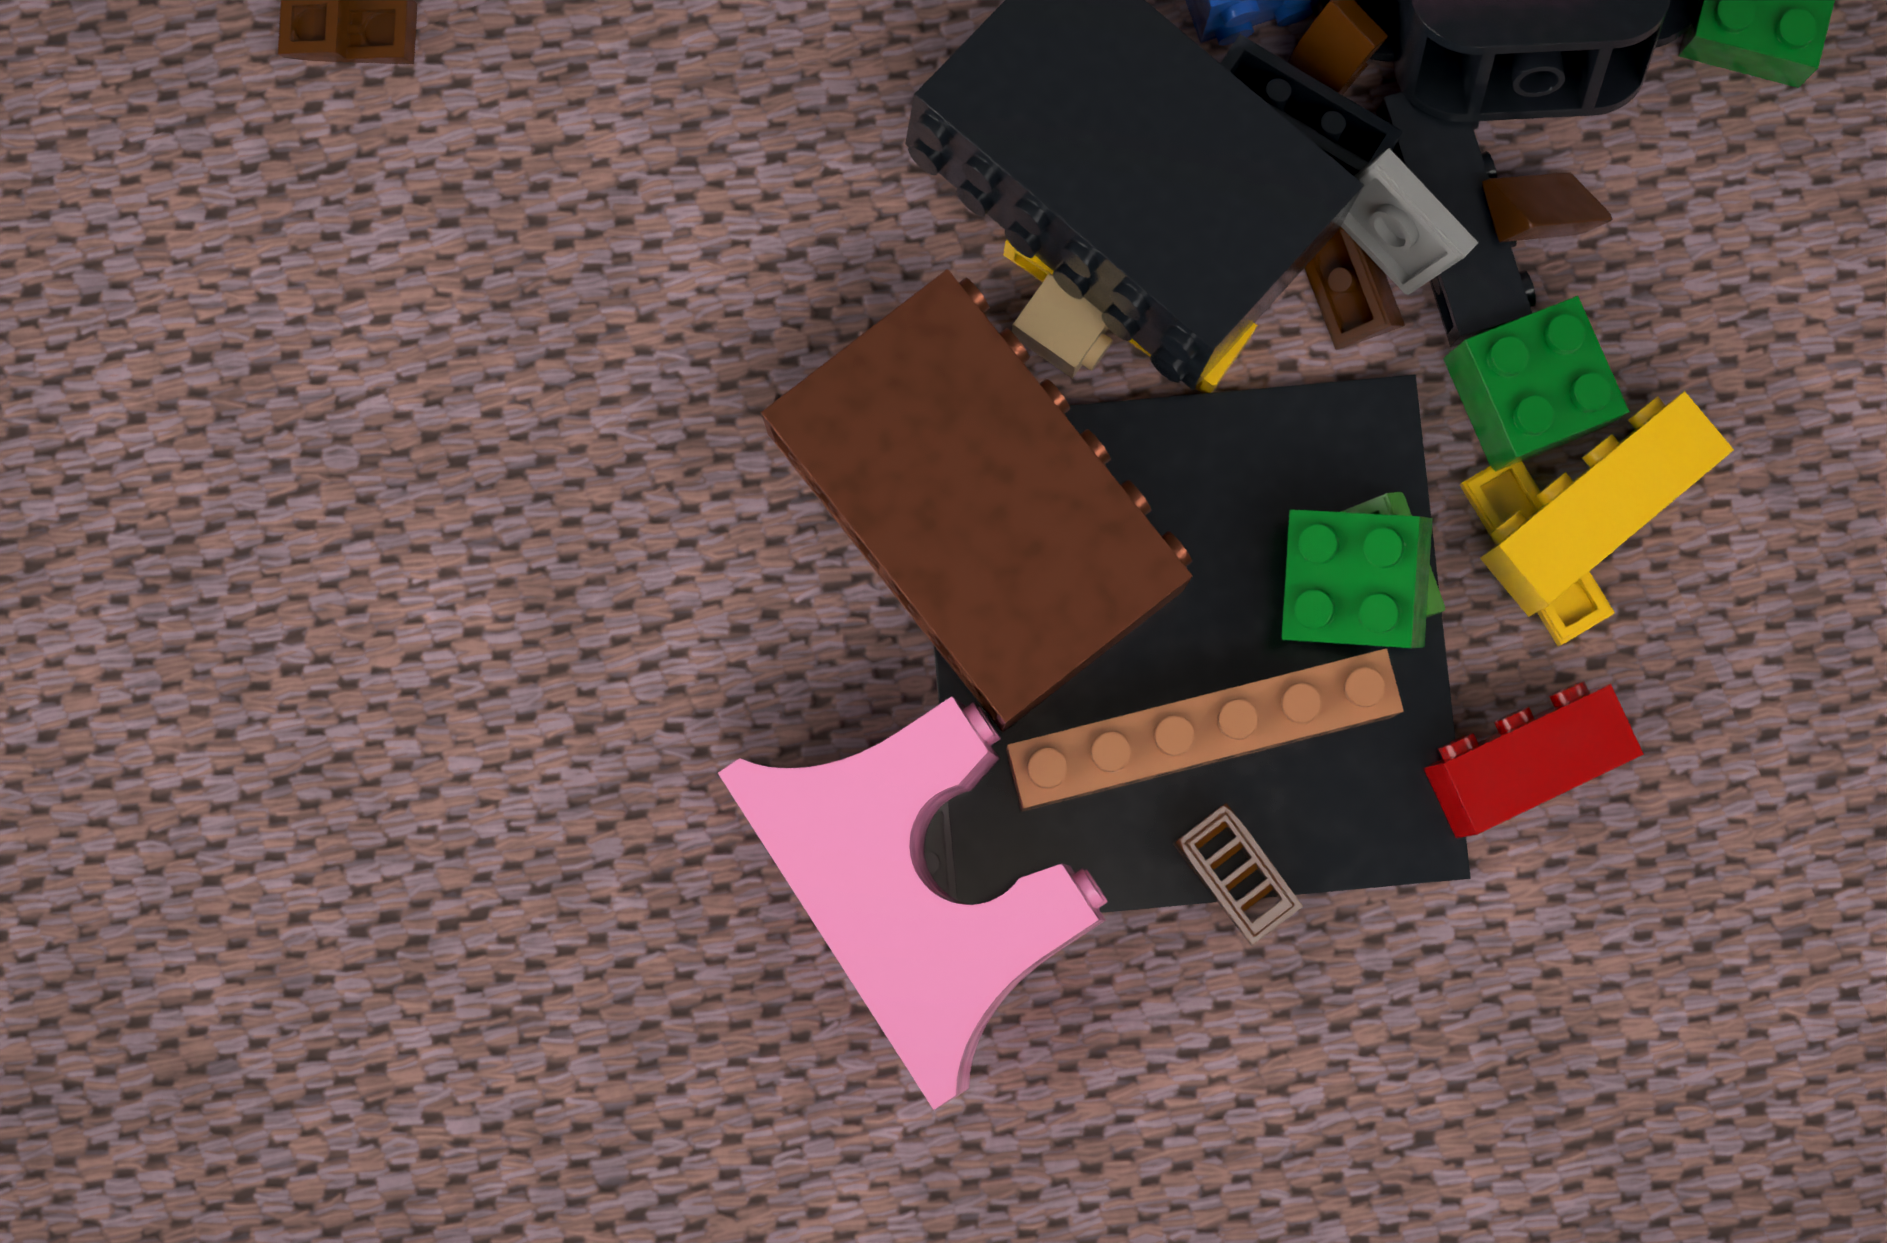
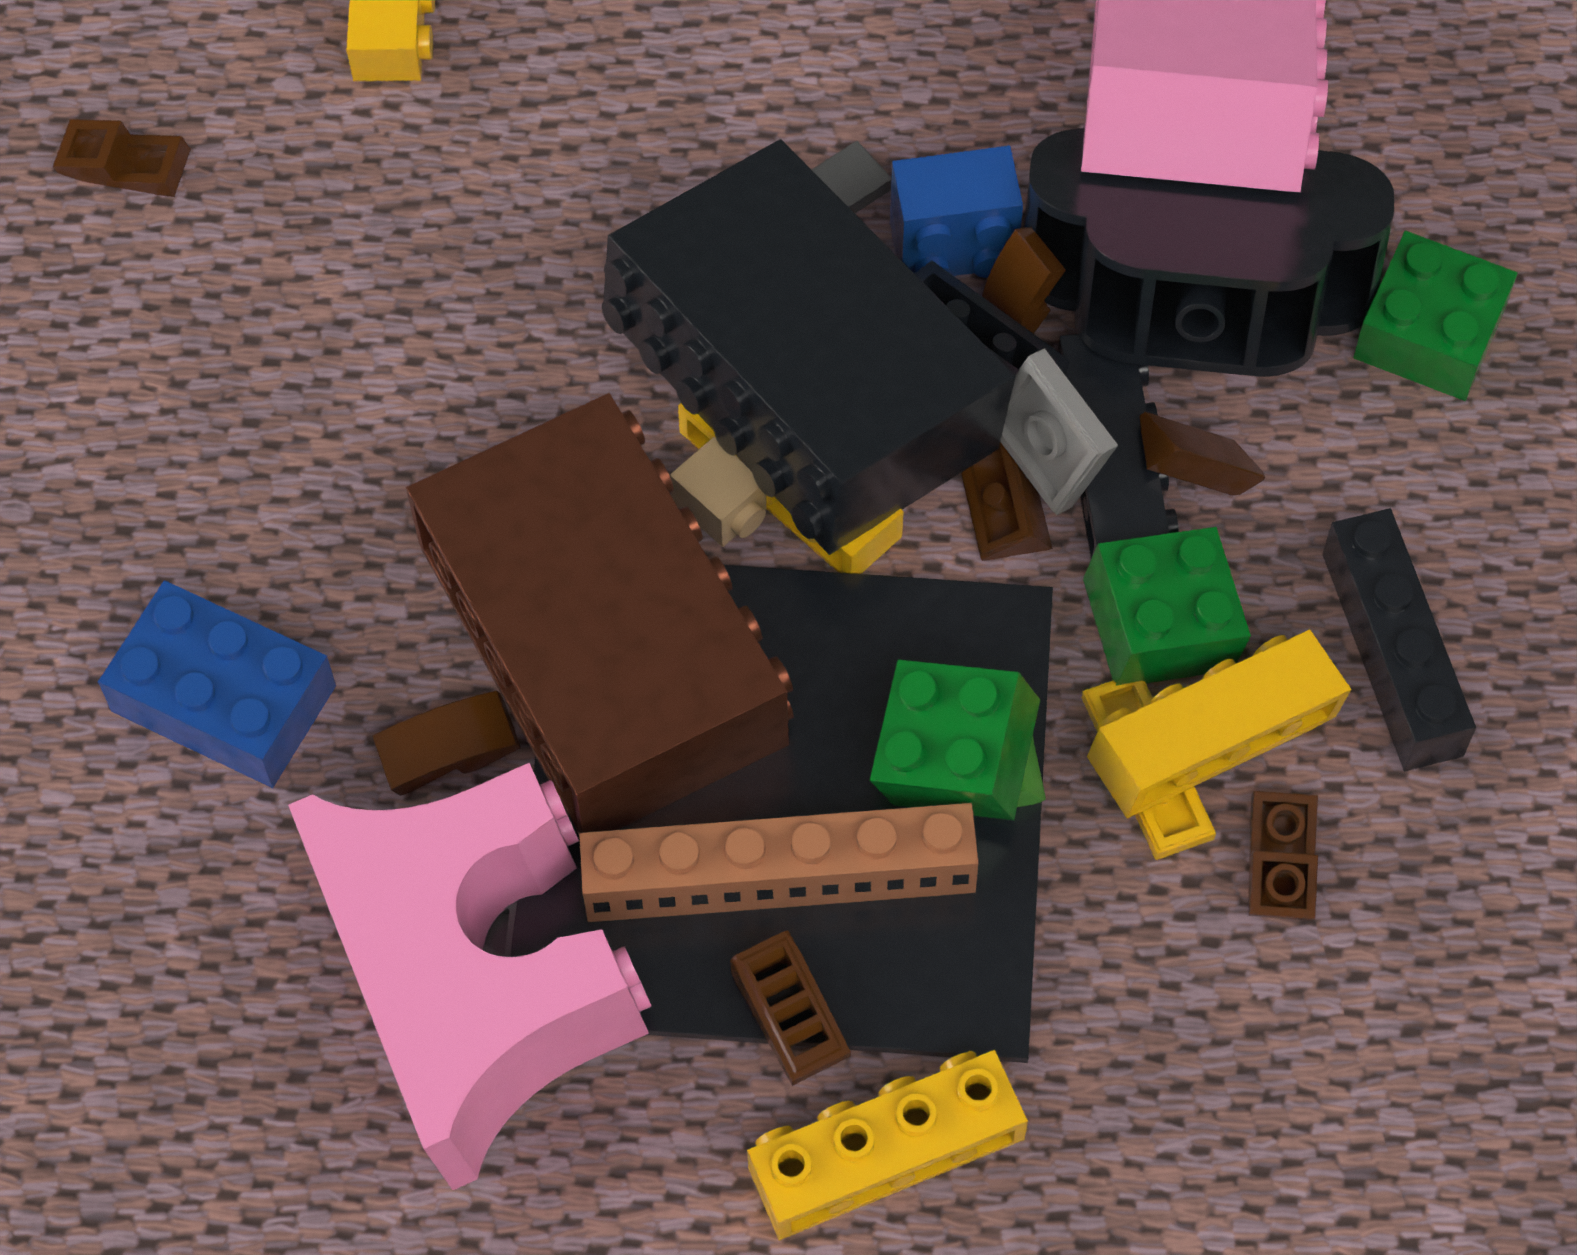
camera: 15 degrees right, 20 degrees down
(600, 625) = (218, 683): none -> blue brick
(841, 644) = (447, 738): none -> reddish brown slope
(1351, 989) = (886, 1142): none -> yellow brick
(1532, 758) = (1107, 947): red brick -> none
(1682, 625) = (1283, 855): none -> reddish brown slope
(1768, 378) = (1398, 640): none -> black brick

